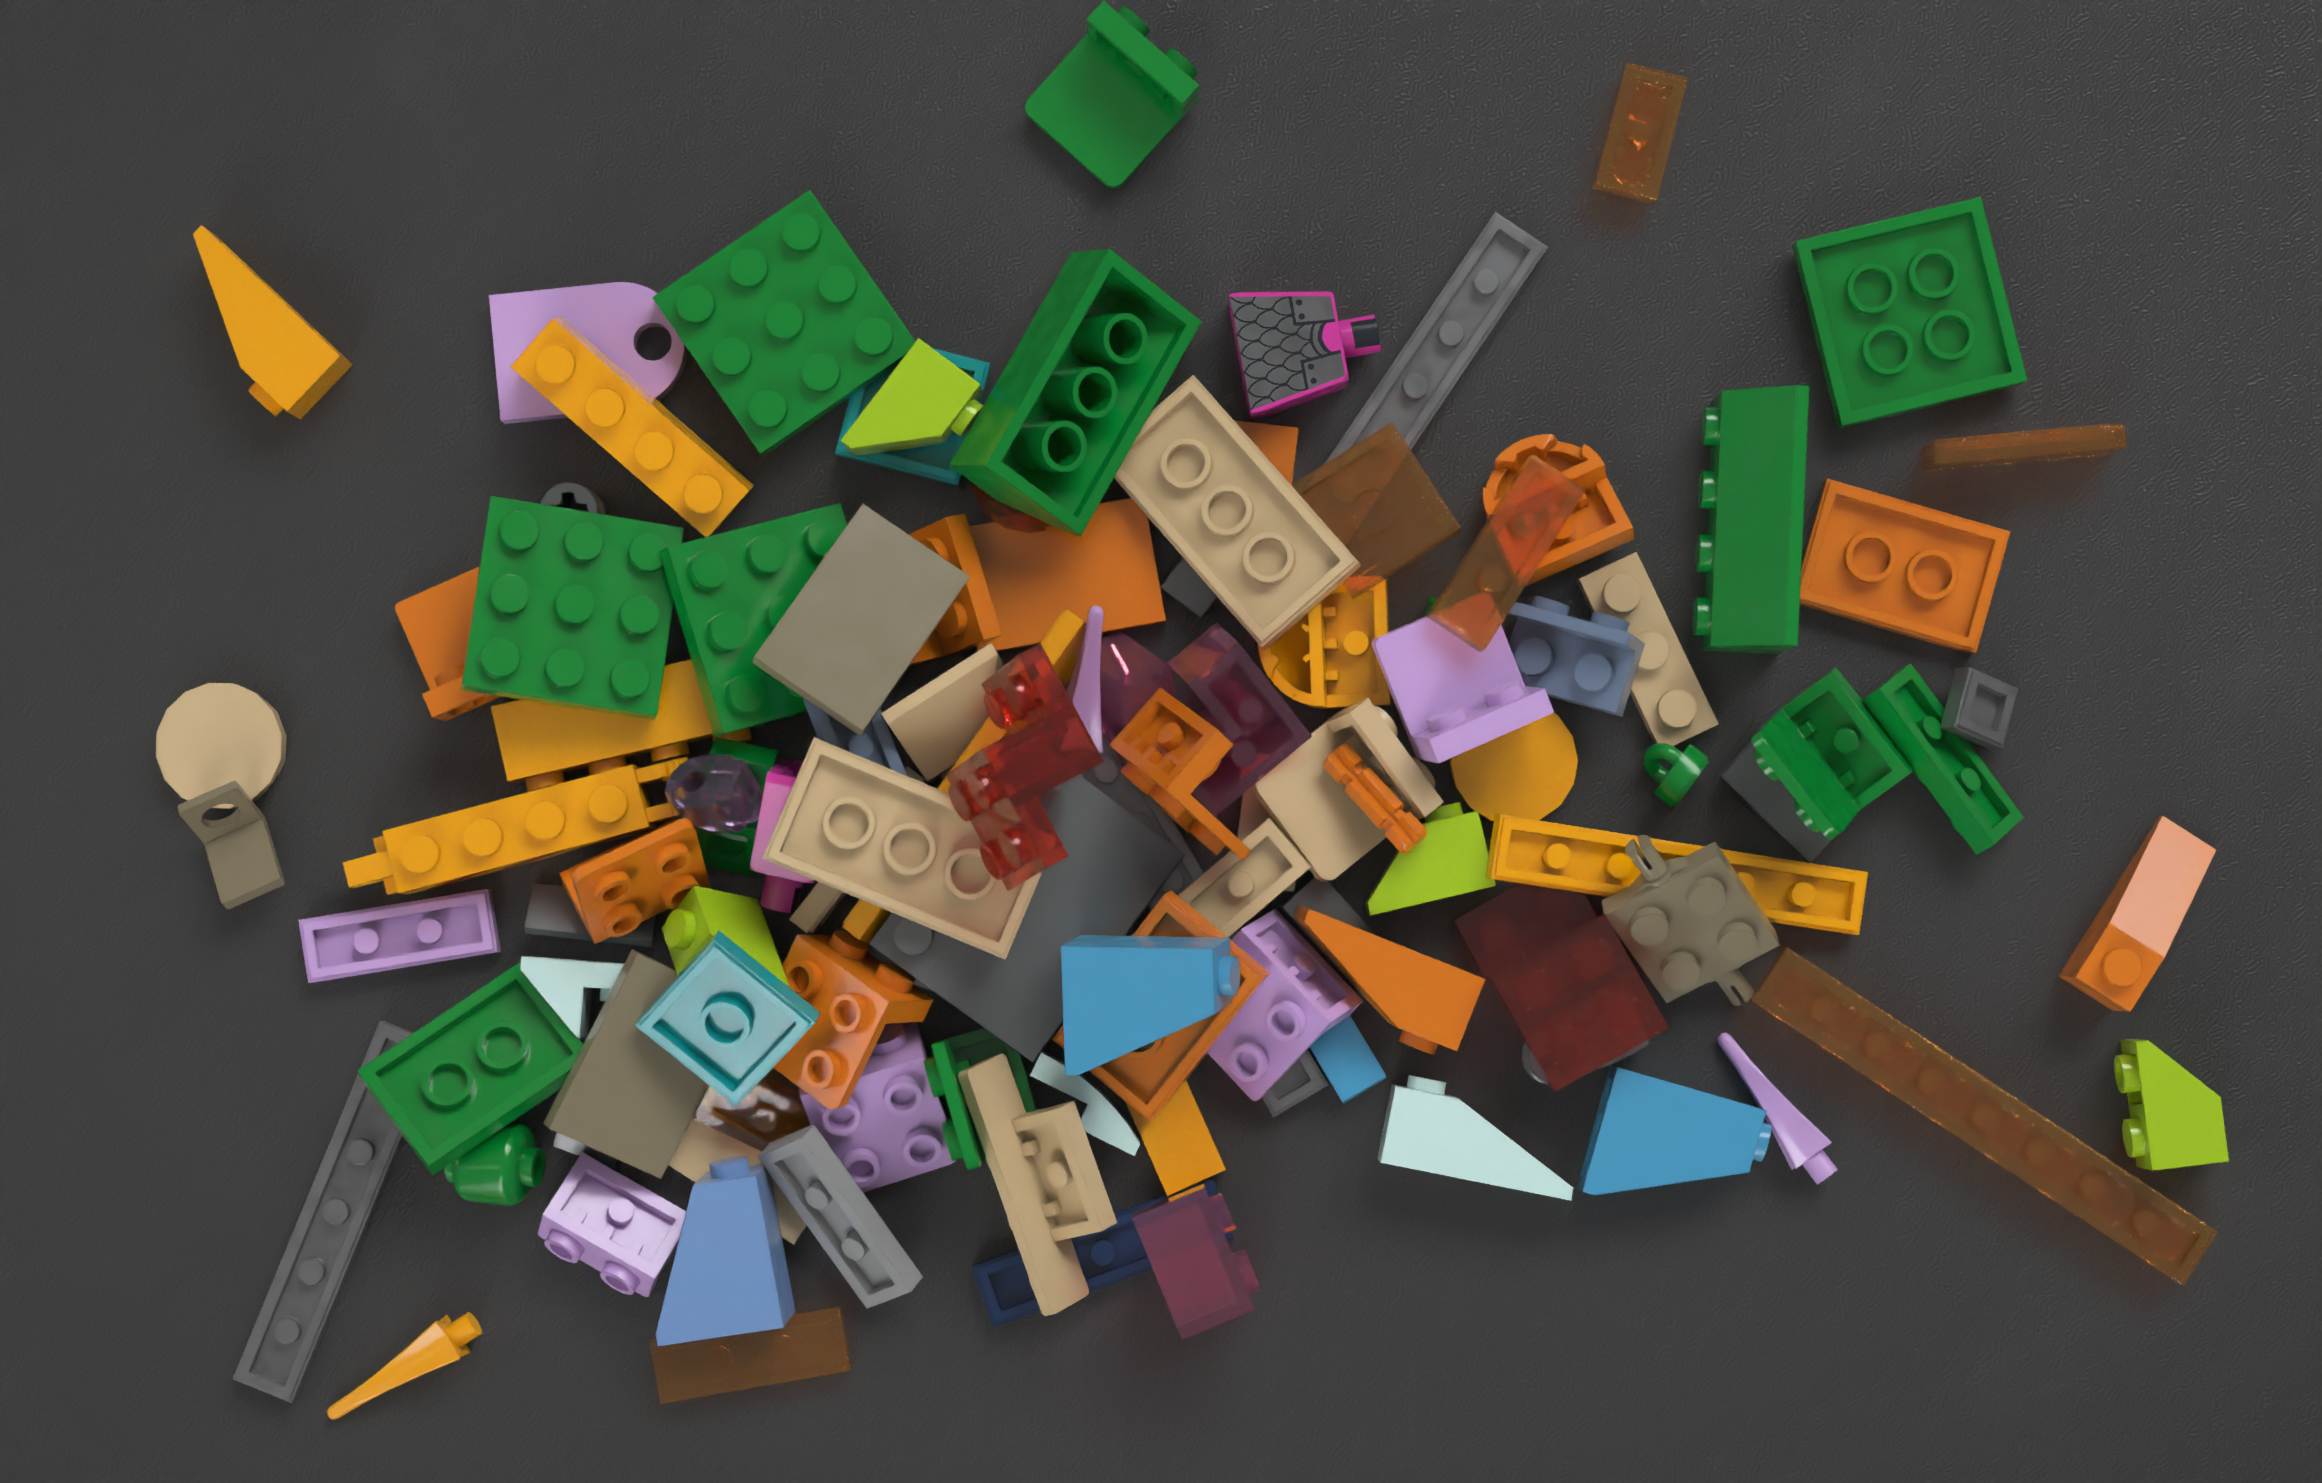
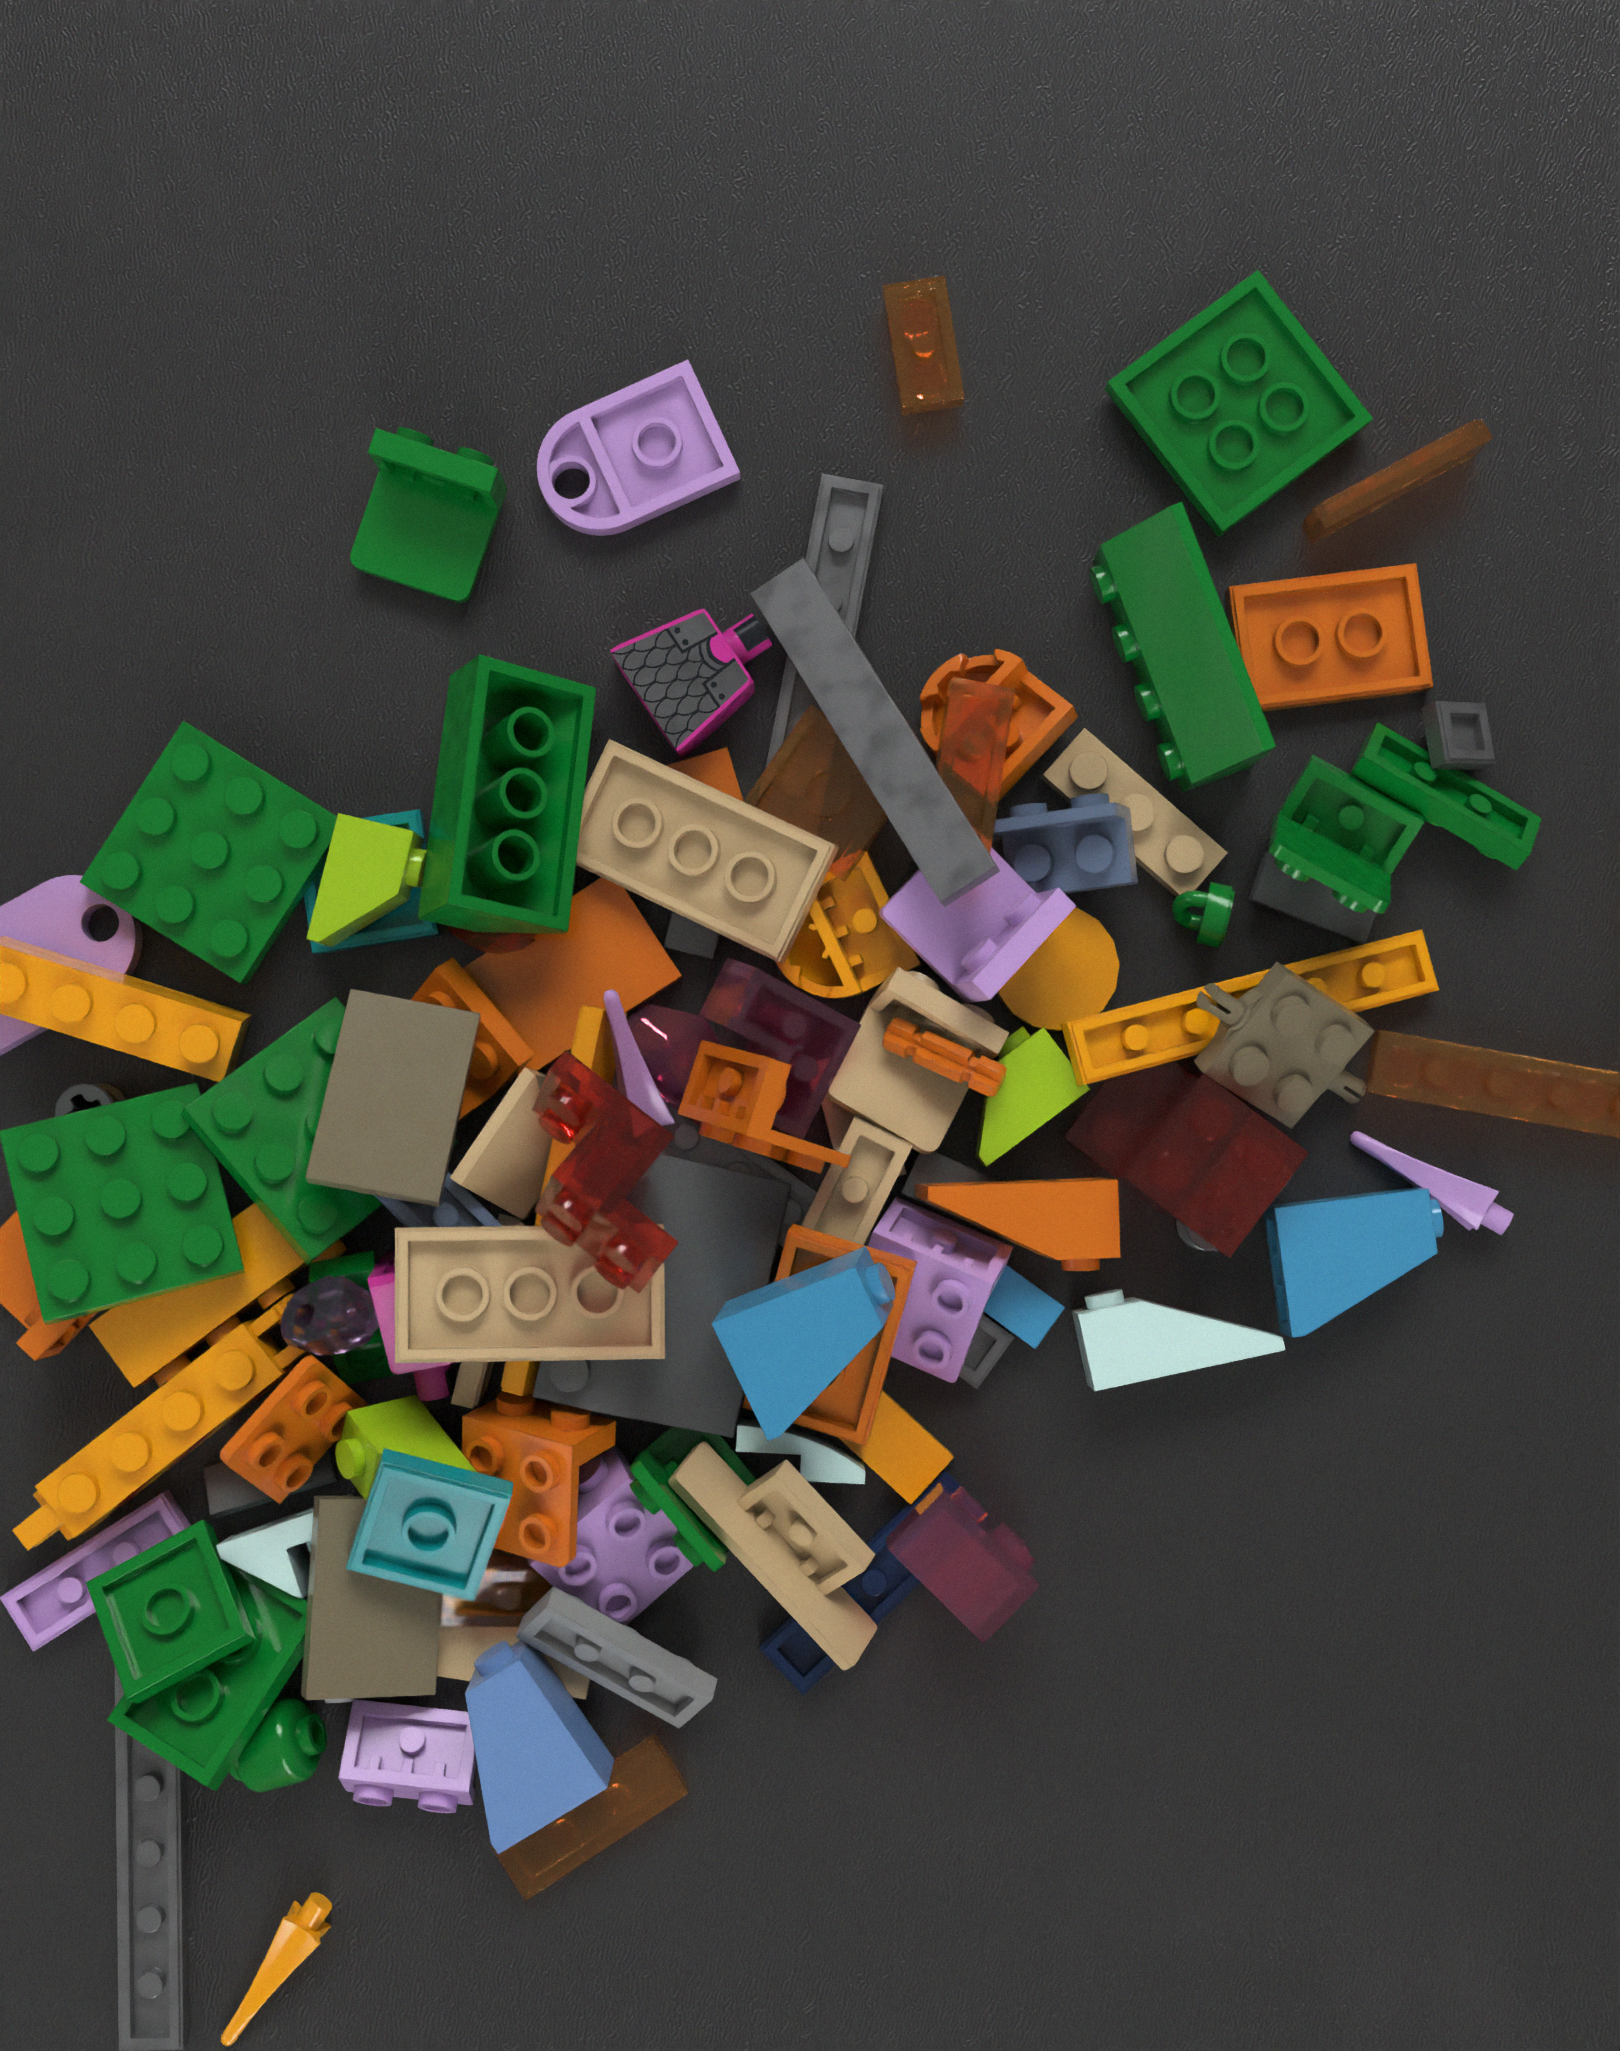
camera: 20 degrees left, 0 degrees up
(455, 997) = (170, 1612): none -> green plate
(1336, 119) = (642, 451): none -> lavender tile
(1439, 474) = (875, 733): none -> flat silver tile

